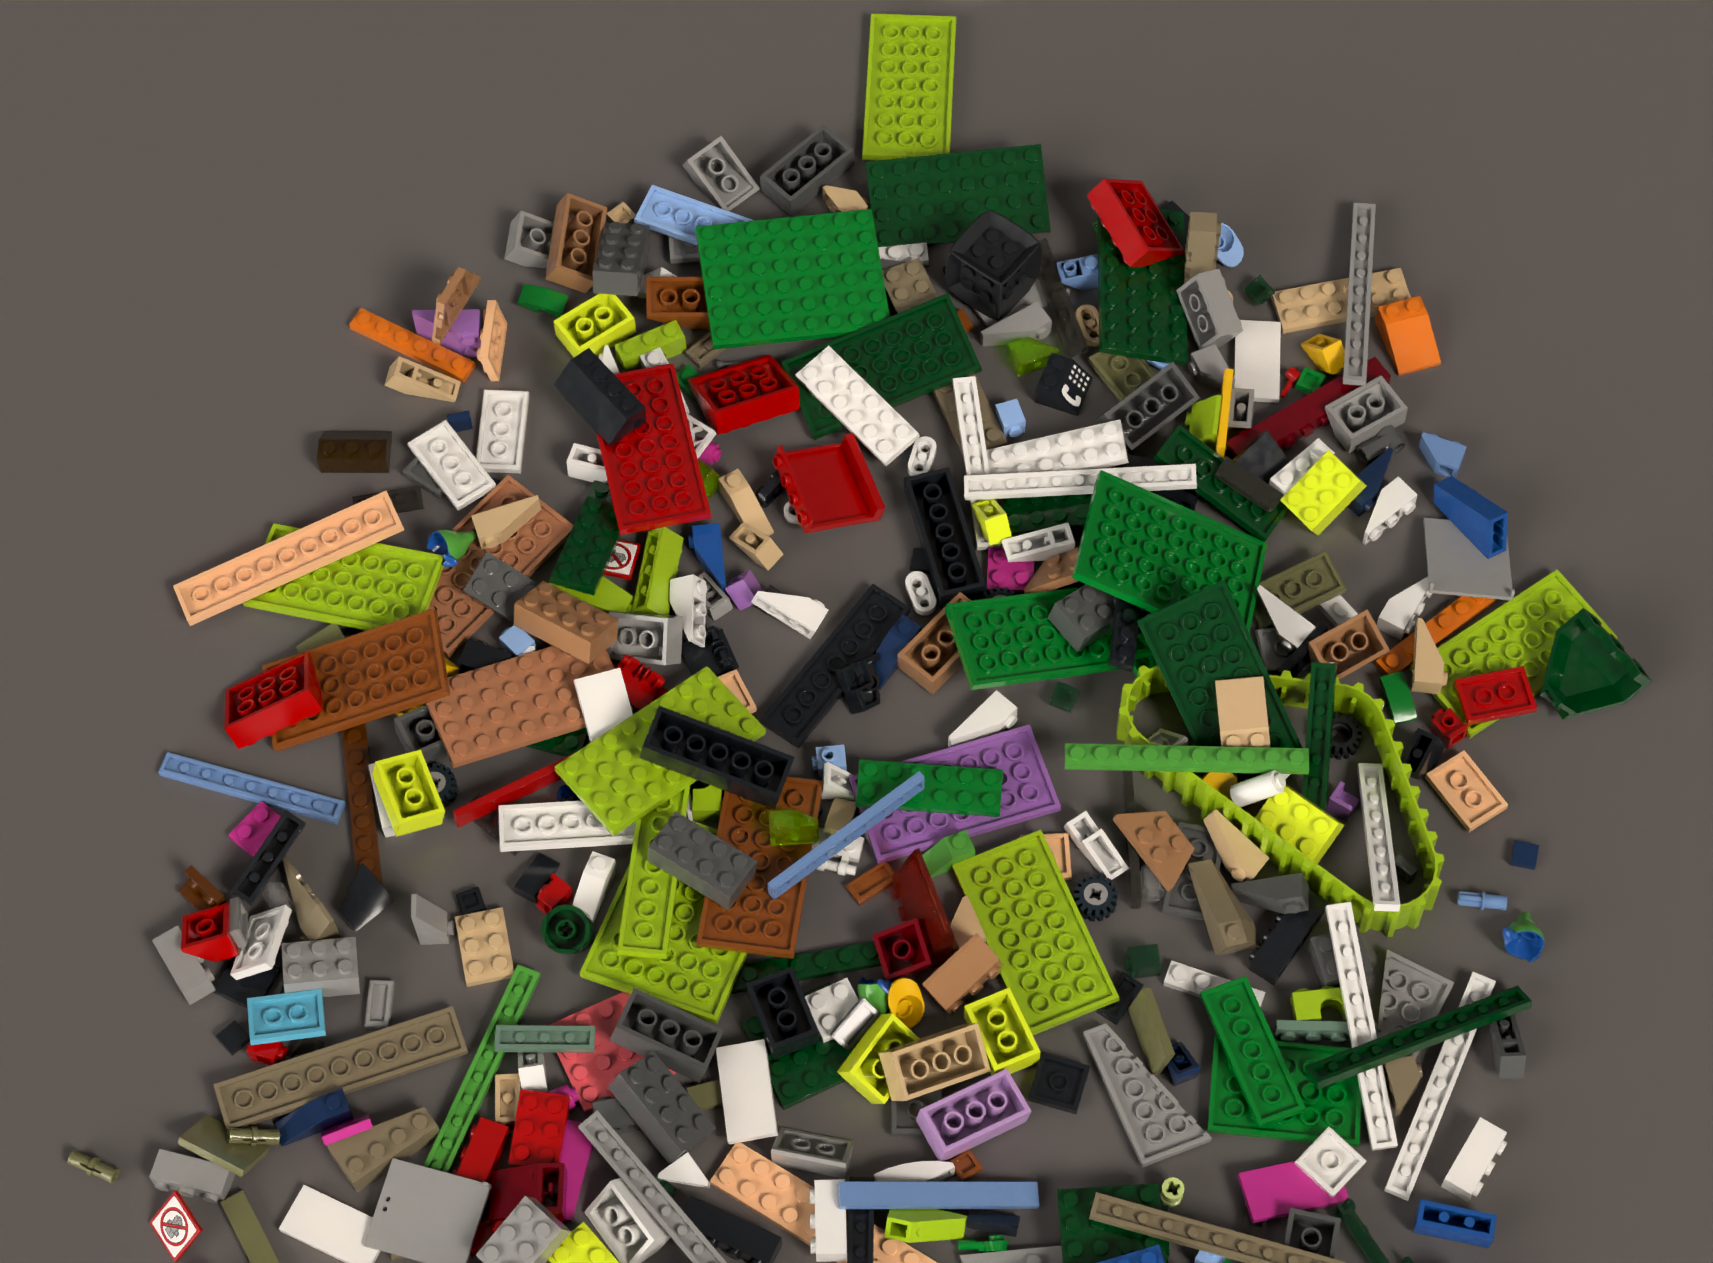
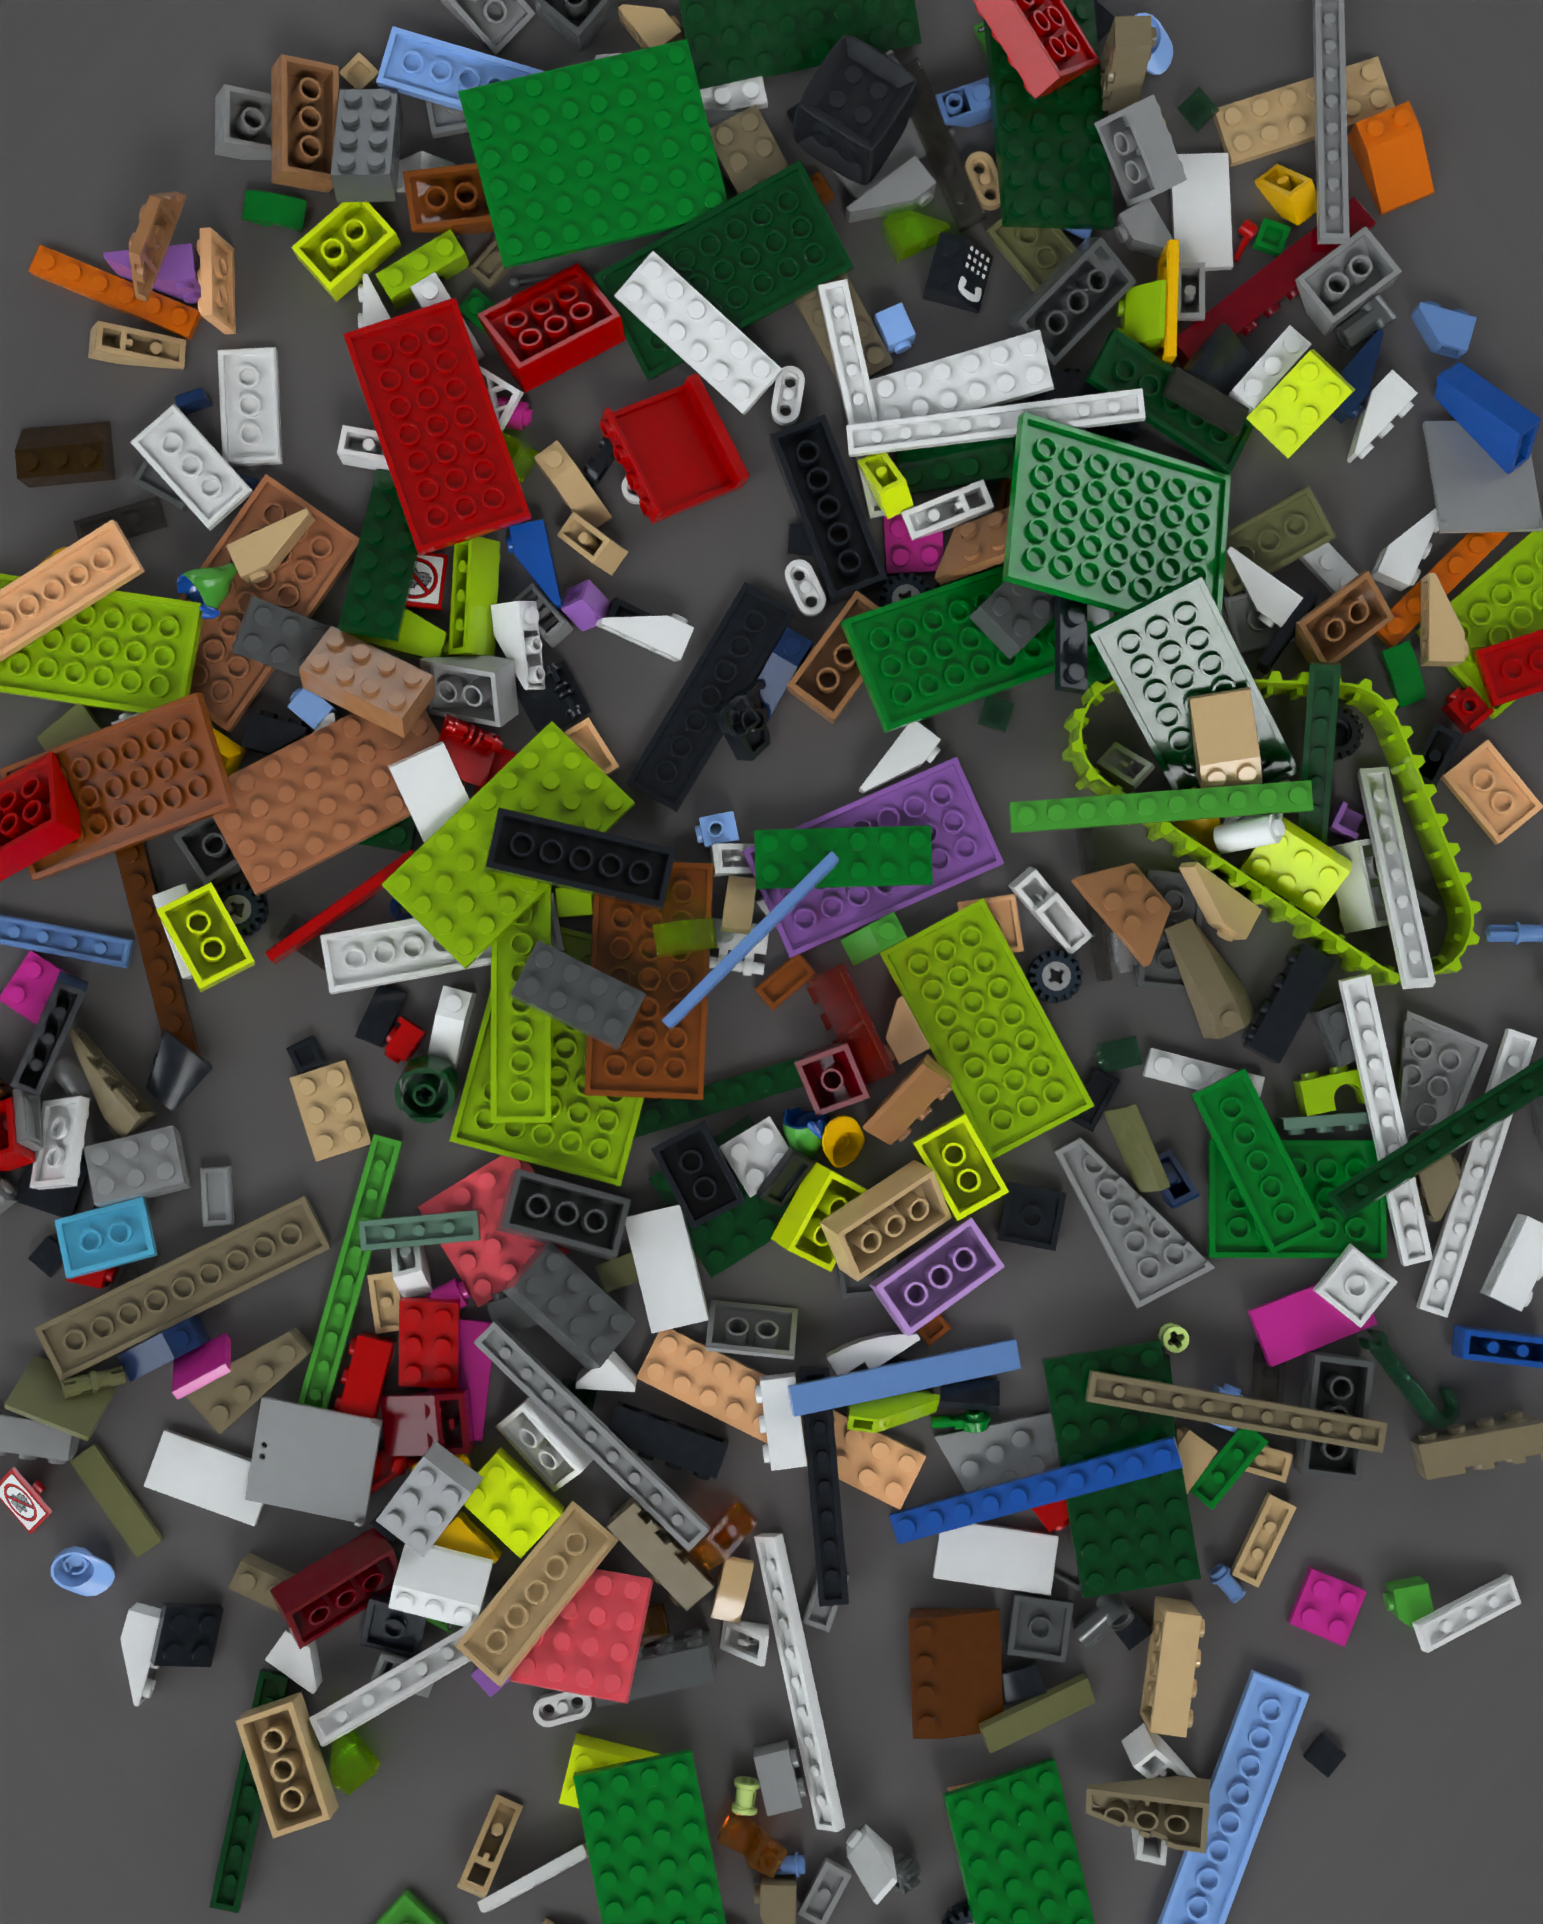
camera: 10 degrees left, 25 degrees up
(430, 922) = (259, 1097): light grey slope -> none
(600, 397) = (366, 363): black slope -> none
(1279, 894) = (1283, 959): dark grey slope -> none
(1350, 851) = (1360, 893): none -> white slope

